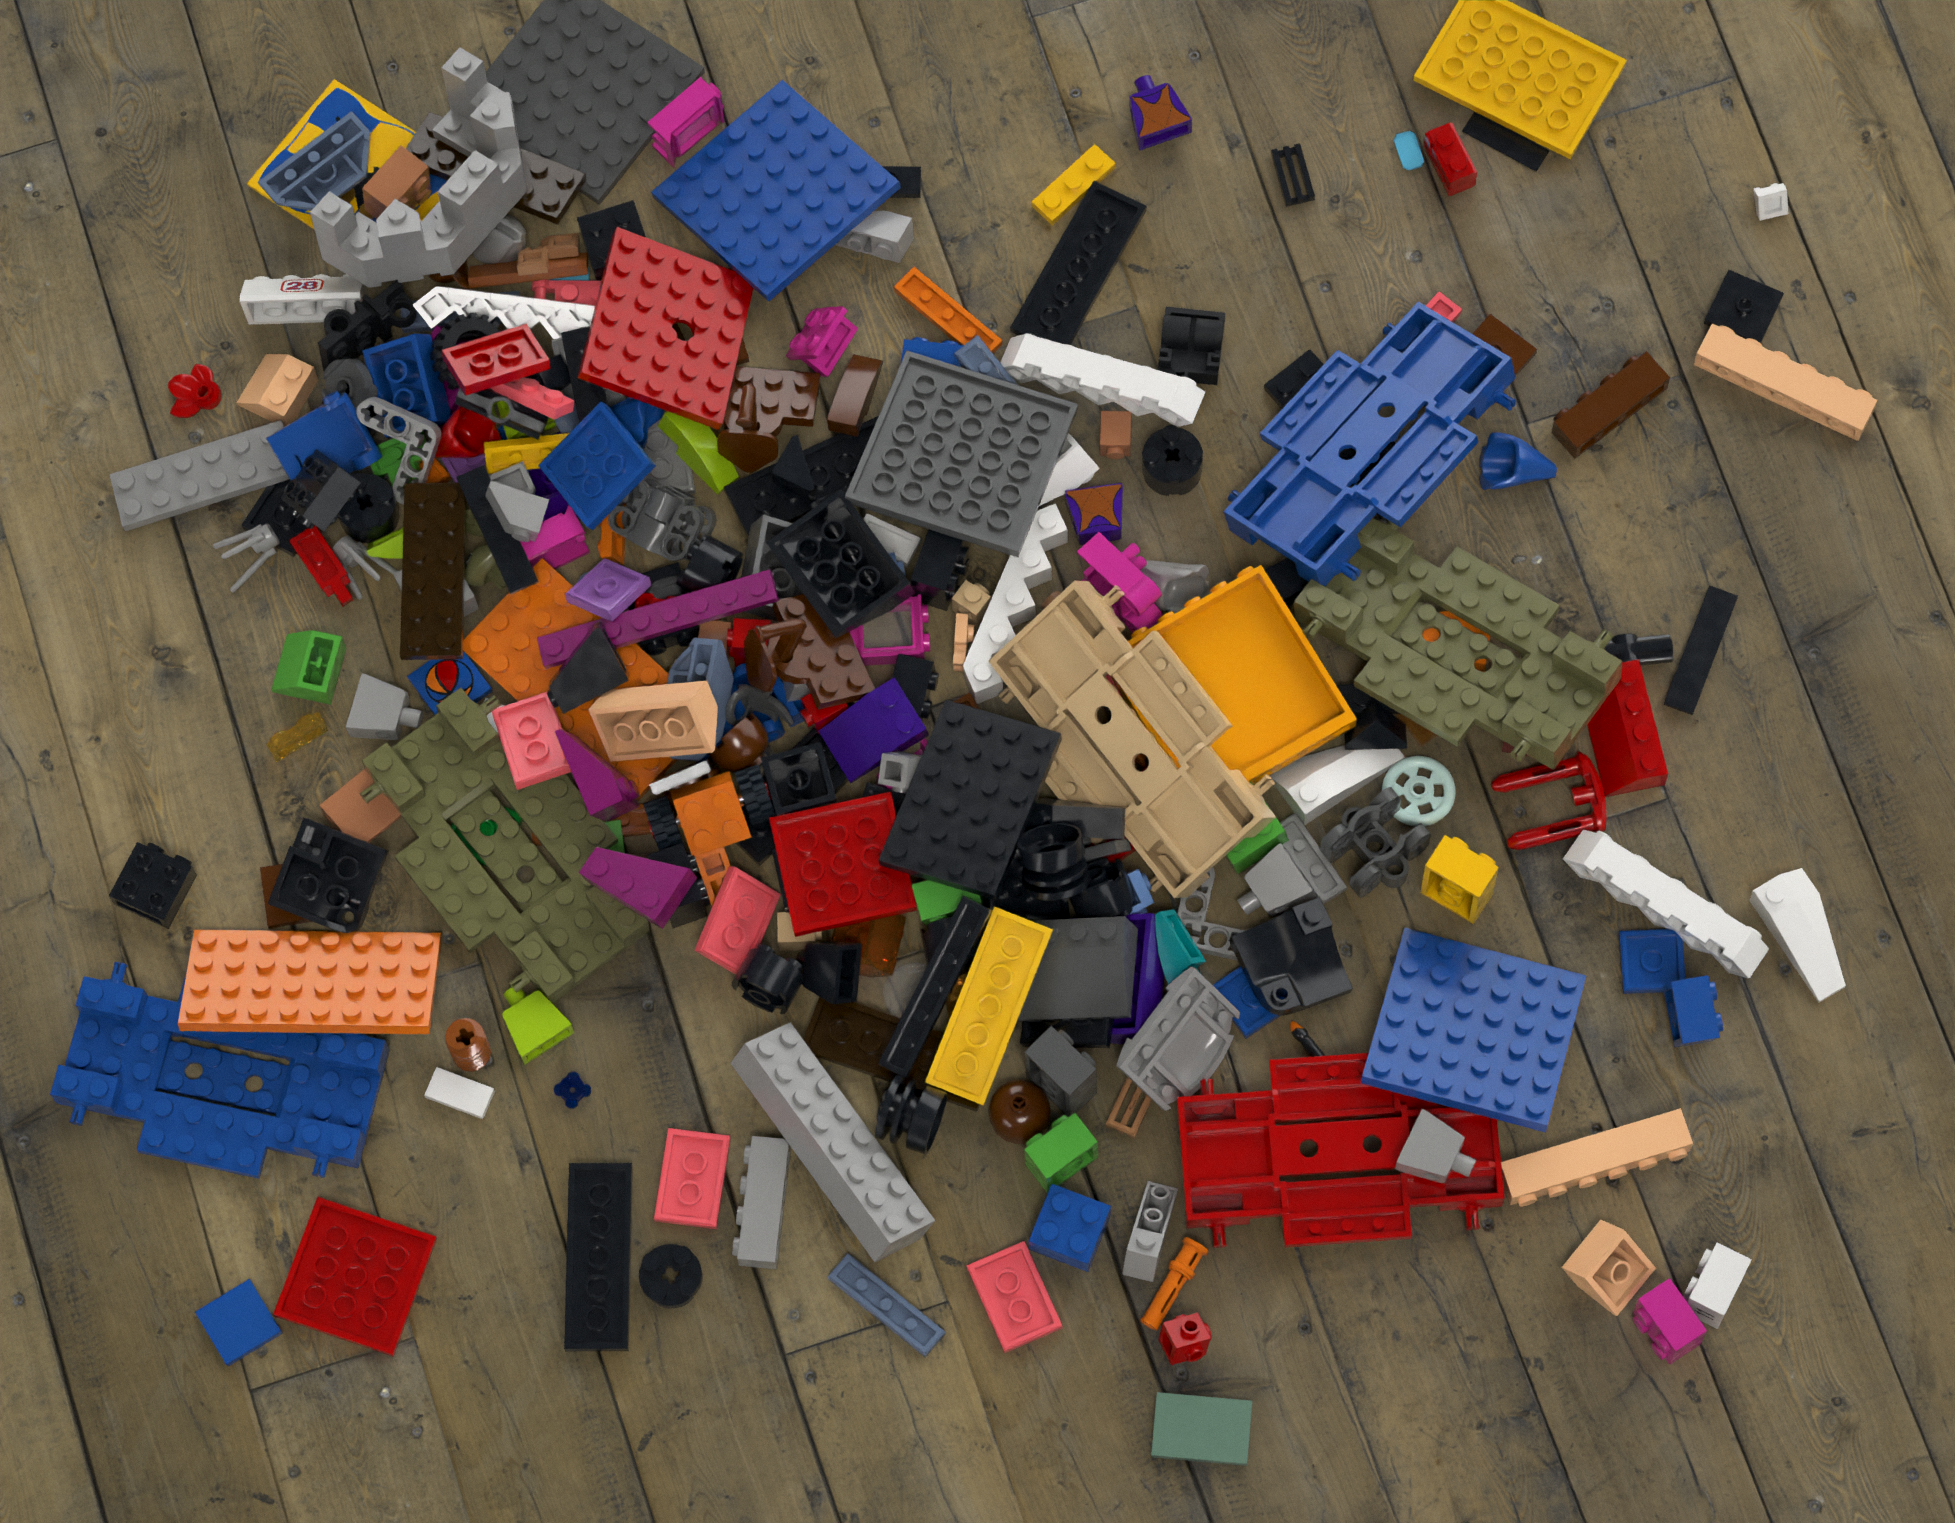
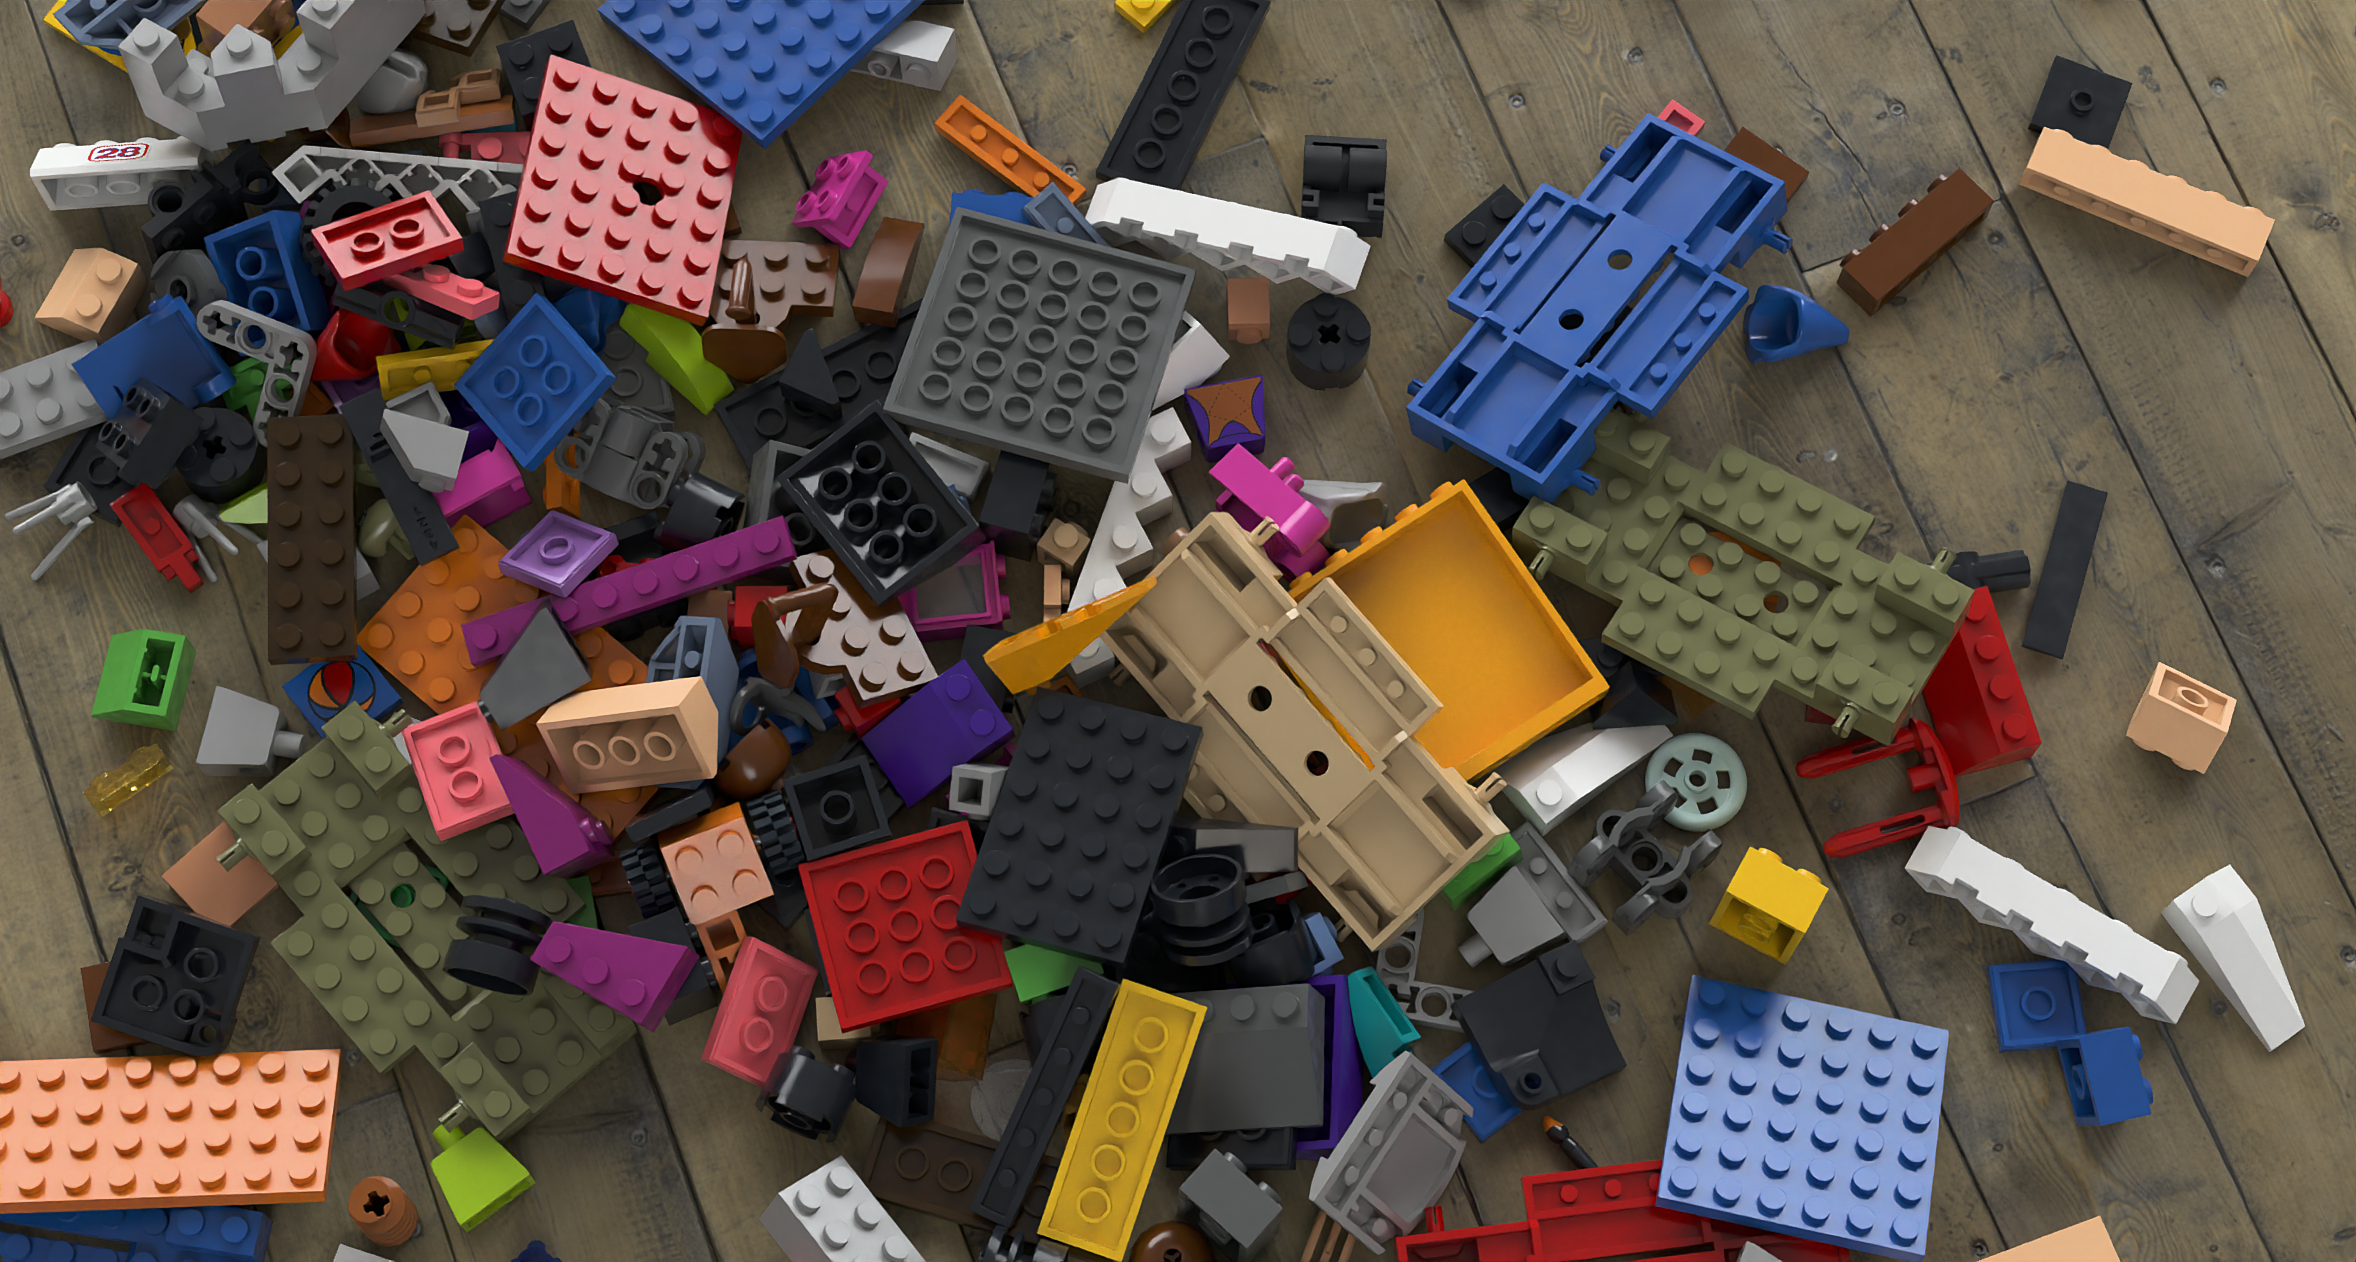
camera: 10 degrees left, 0 degrees up
(555, 863) = (495, 955): none -> black wheel
(952, 674) = (1044, 650): none -> light orange wedge
(1775, 761) = (2181, 719): none -> light nougat slope

